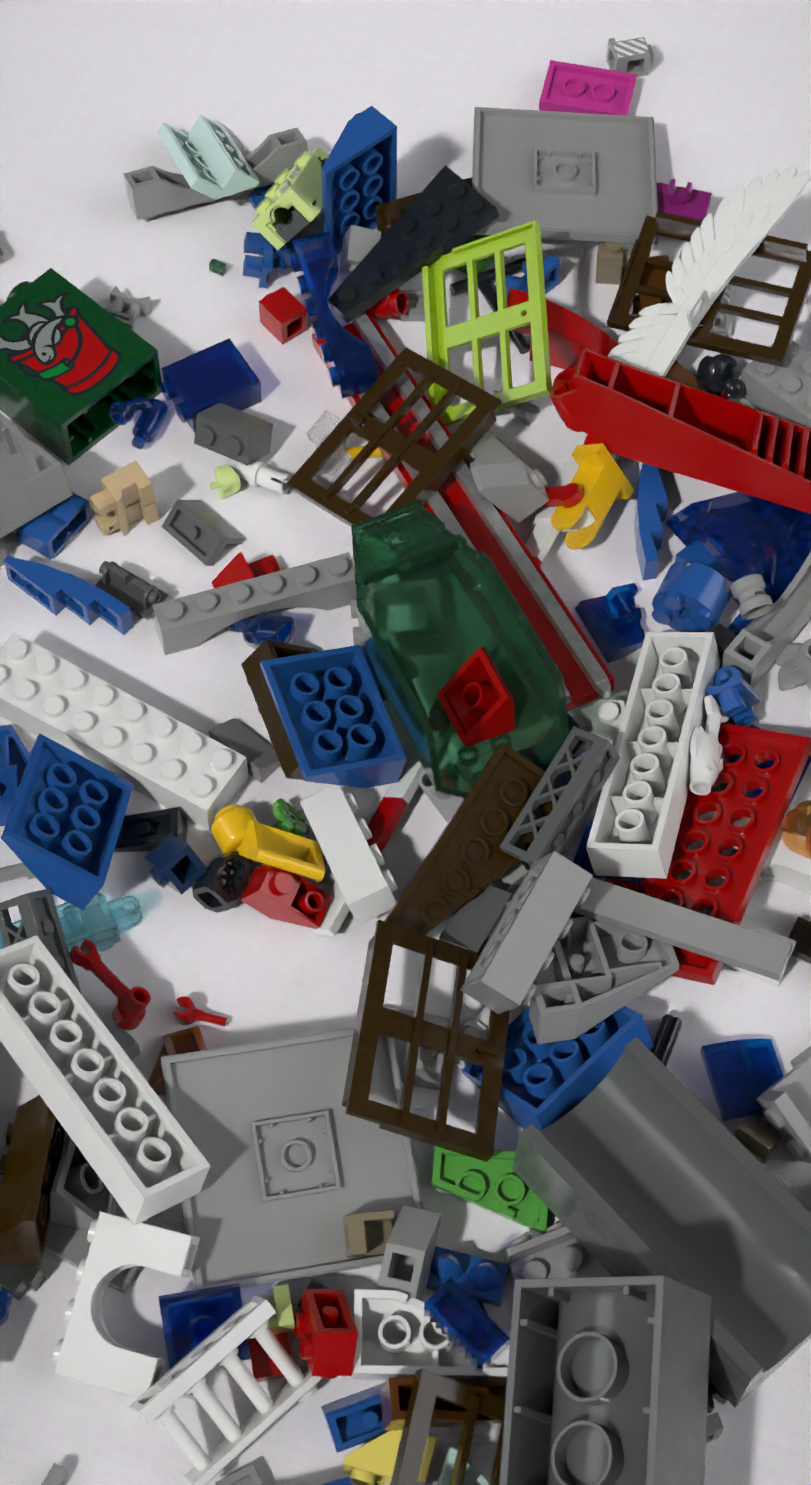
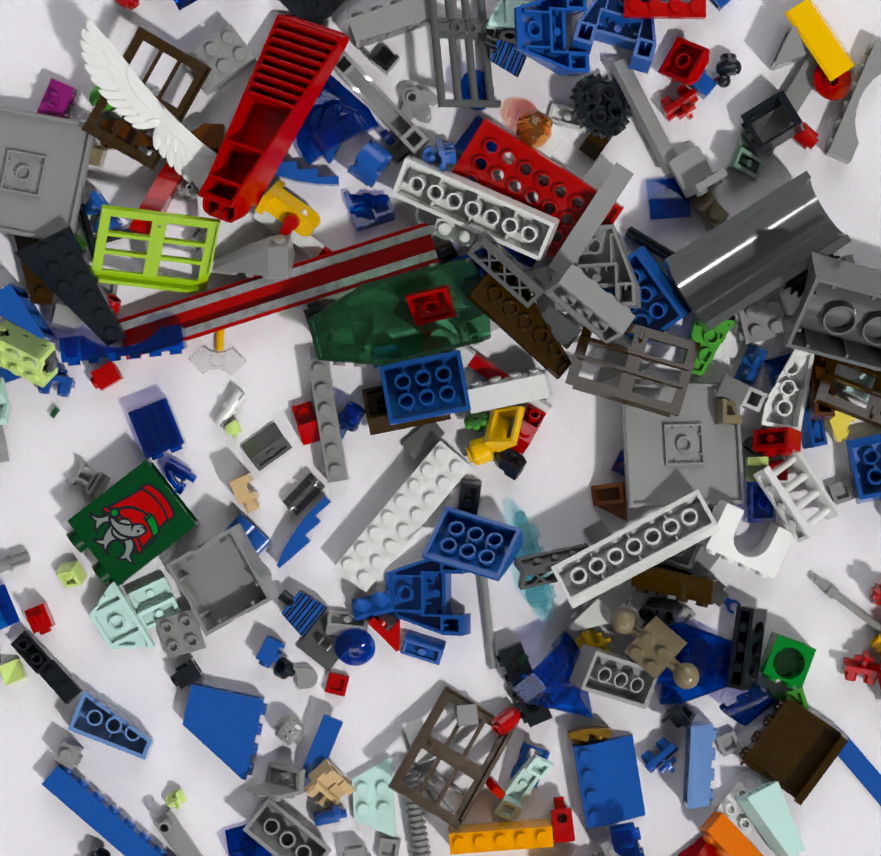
camera: 85 degrees left, 30 degrees up
(130, 1003) = (579, 523): red brick -> none
(175, 864) = (498, 488): dark blue brick -> none
(194, 1014) = (585, 484): red hand -> none
(233, 433) = (203, 419): dark grey brick -> none
(432, 467) = (237, 320): dark brown door -> none
(465, 1324) = (794, 373): clear blue brick -> none
(706, 749) = (480, 179): white animal -> none
(719, 375) = (200, 108): black animal -> none
(752, 597) = (377, 127): light grey wheel -> none

